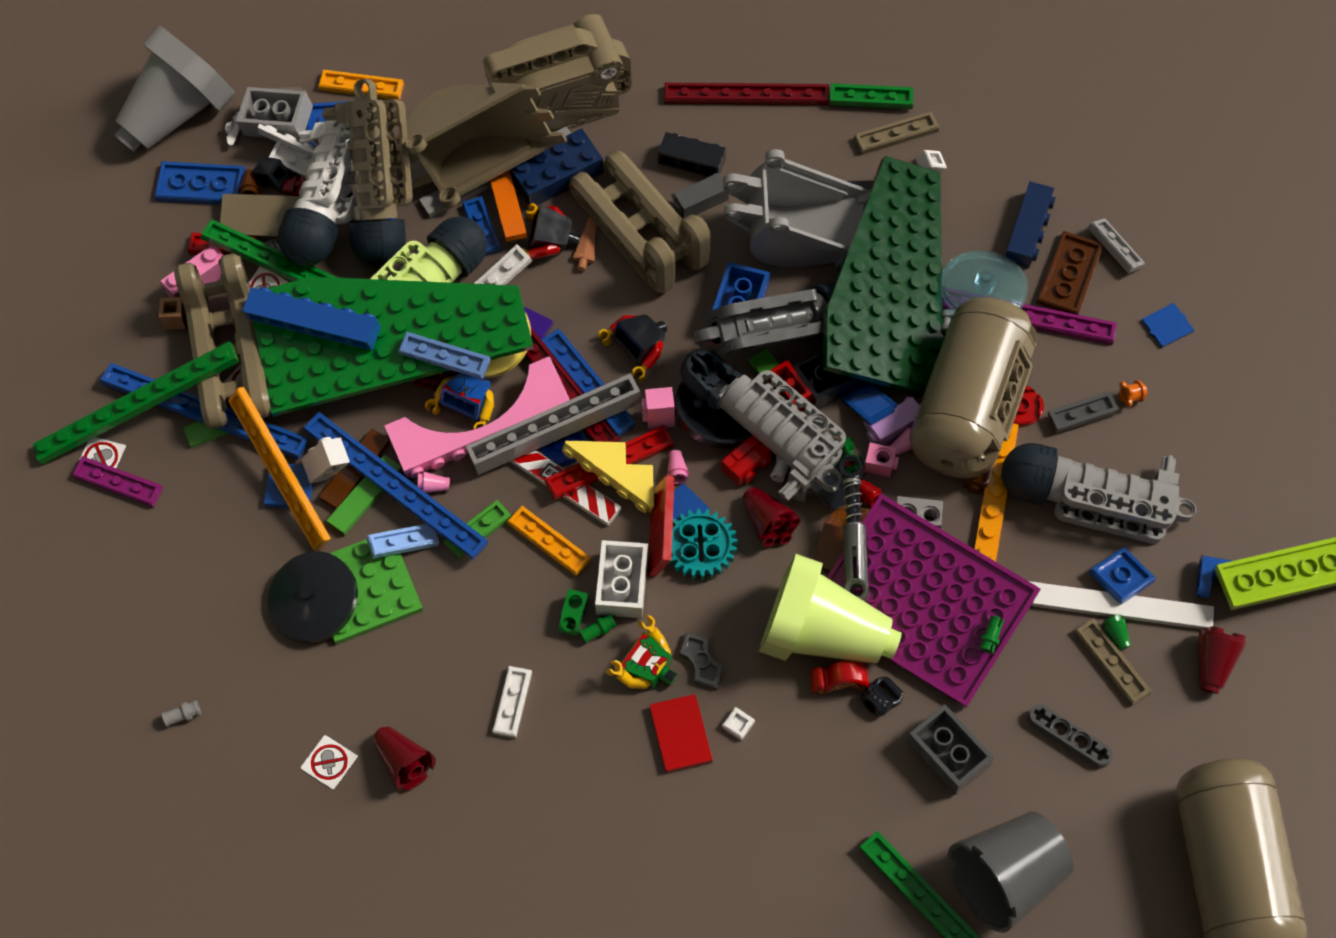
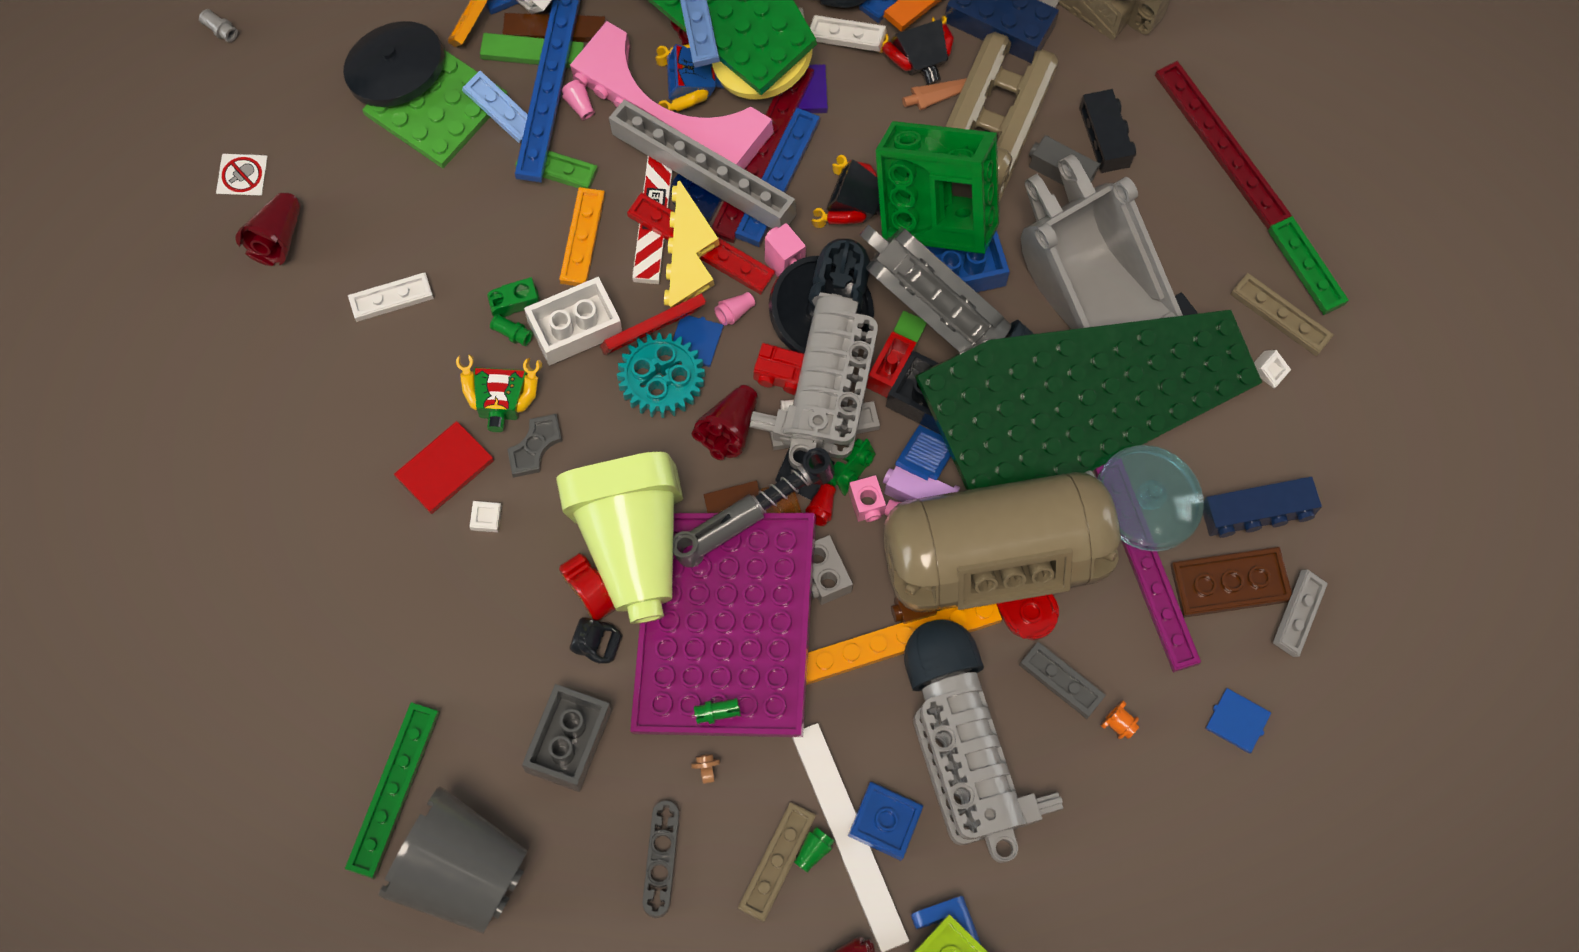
camera: 55 degrees right, 5 degrees up
(678, 281) = (916, 185): none -> green piece
(1020, 670) = (705, 764): none -> medium nougat plate

